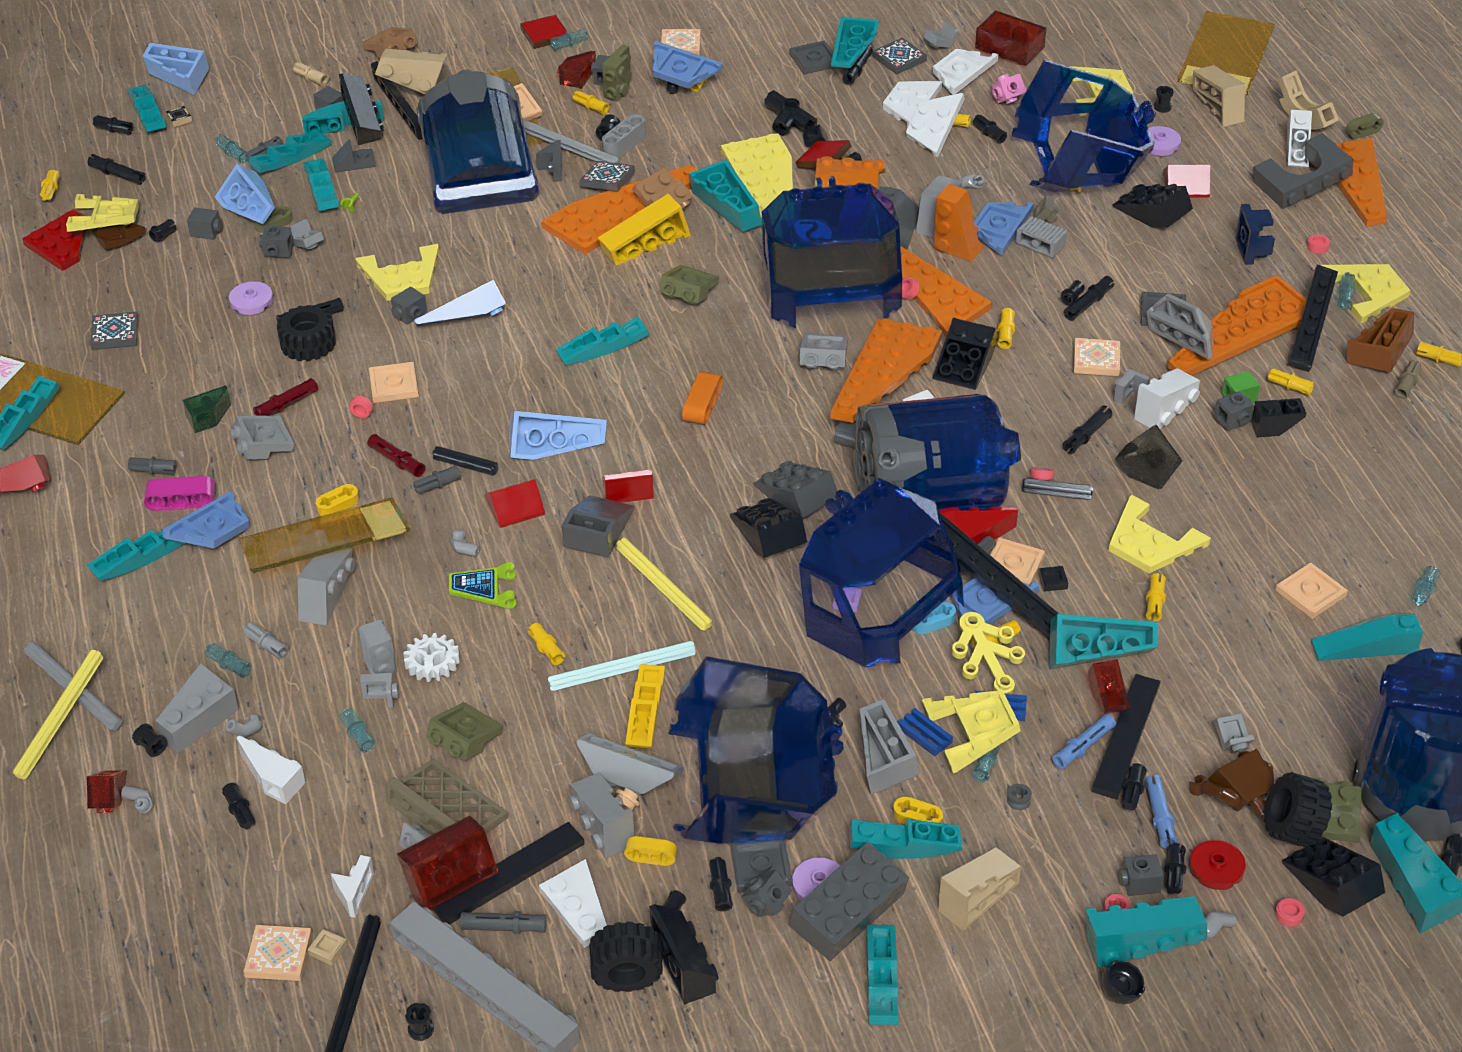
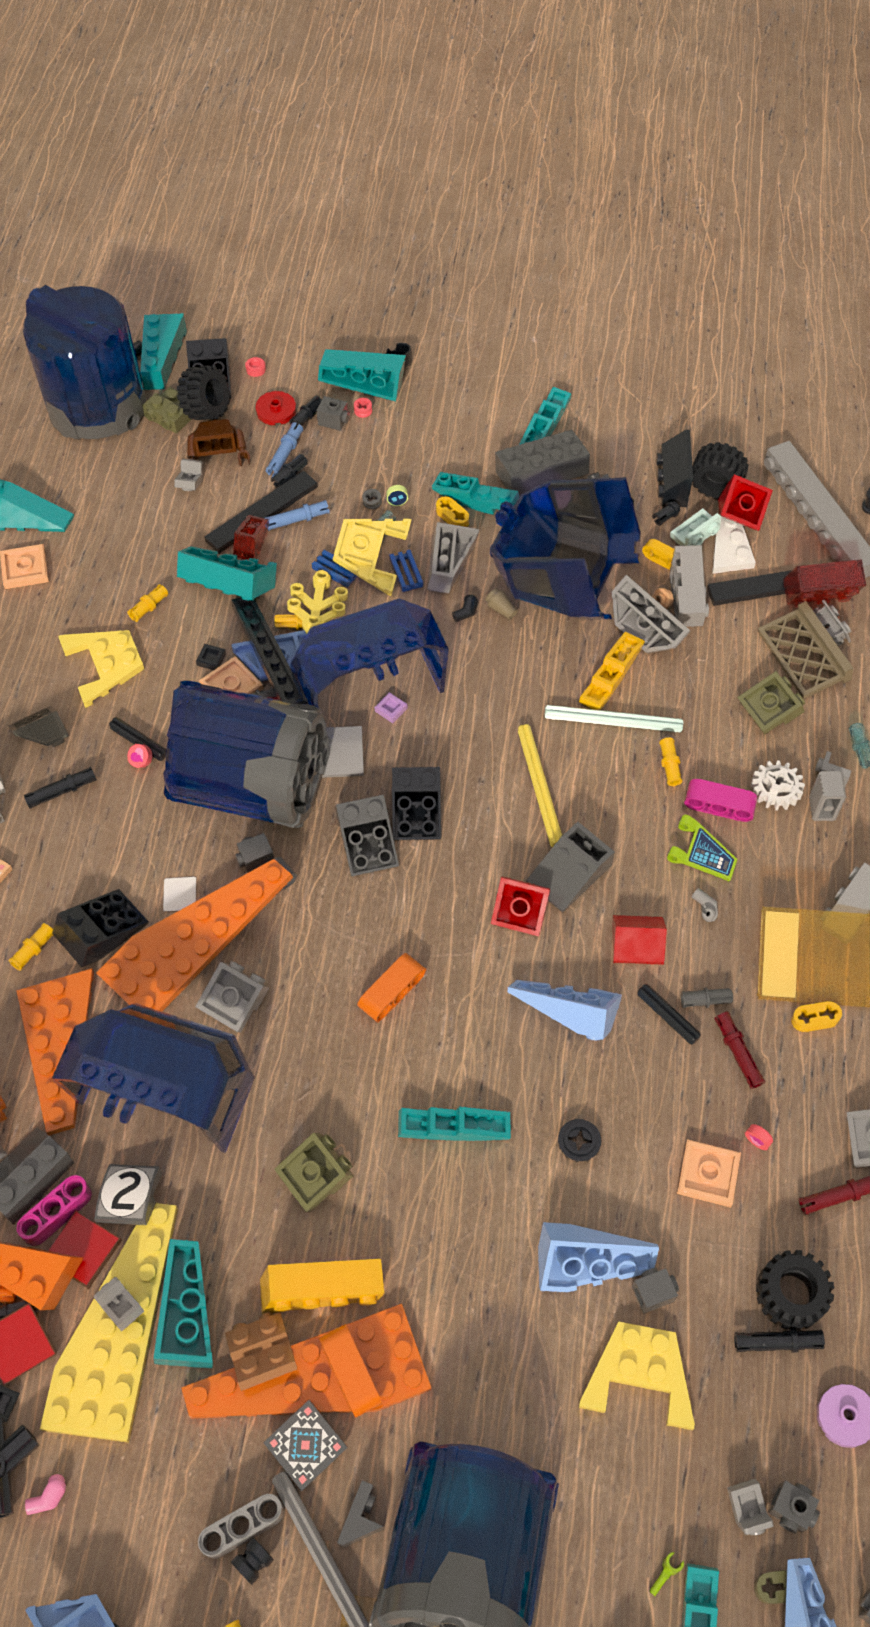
camera: 155 degrees left, 15 degrees up
(483, 626) = (721, 800): none -> dark pink beam
(503, 922) = (787, 545): dark grey pin -> none
(509, 360) = (589, 1133): none -> black gear
(572, 932) = (744, 502): none -> red slope
(597, 199) = (350, 1371): none -> orange beam
(623, 891) = (696, 529): none -> light aqua bracket
(750, 114) = (50, 1497): none -> bright pink arm
(769, 179) = (118, 1303): none -> light grey bracket
(977, 887) = (449, 441): tan wedge -> none
(992, 803) = (397, 495): none -> tile
(1216, 920) = (307, 372): light grey arm -> none

